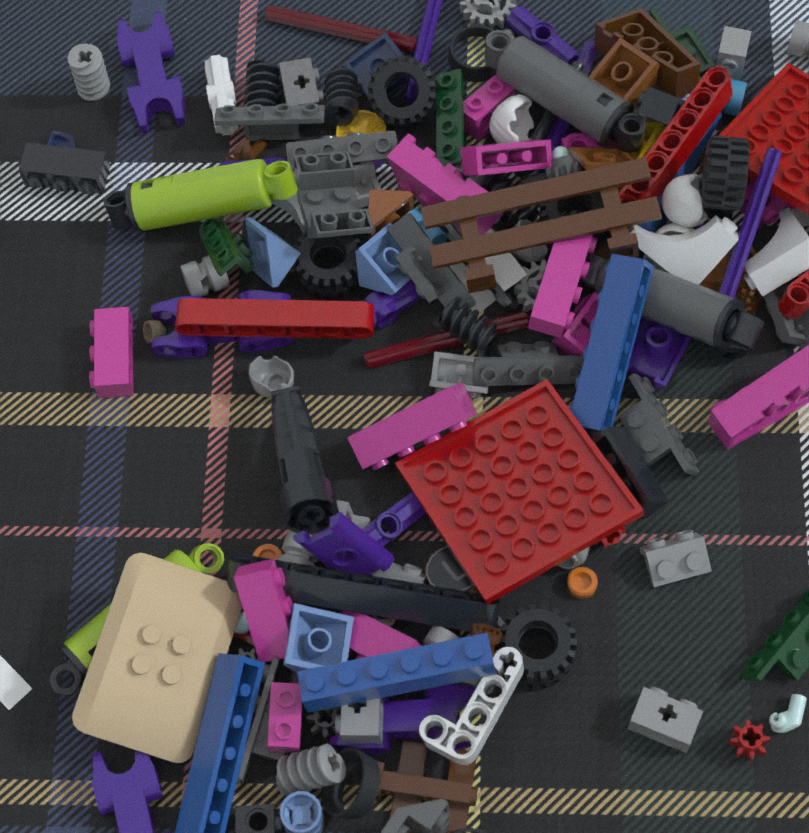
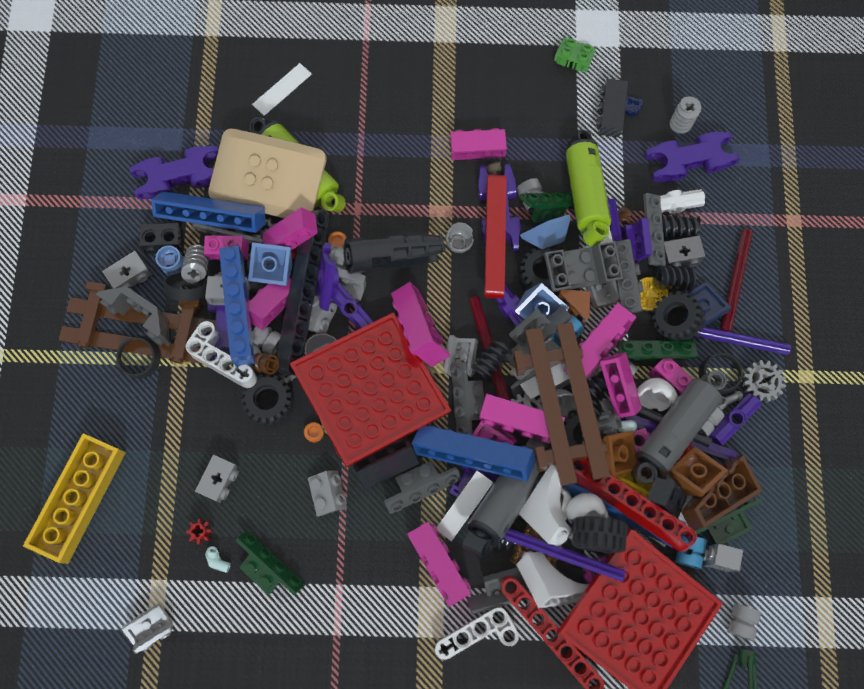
camera: 85 degrees right, 10 degrees up
(281, 129) = (640, 239): none -> dark purple slope
(682, 365) = (464, 505): none -> white sticker

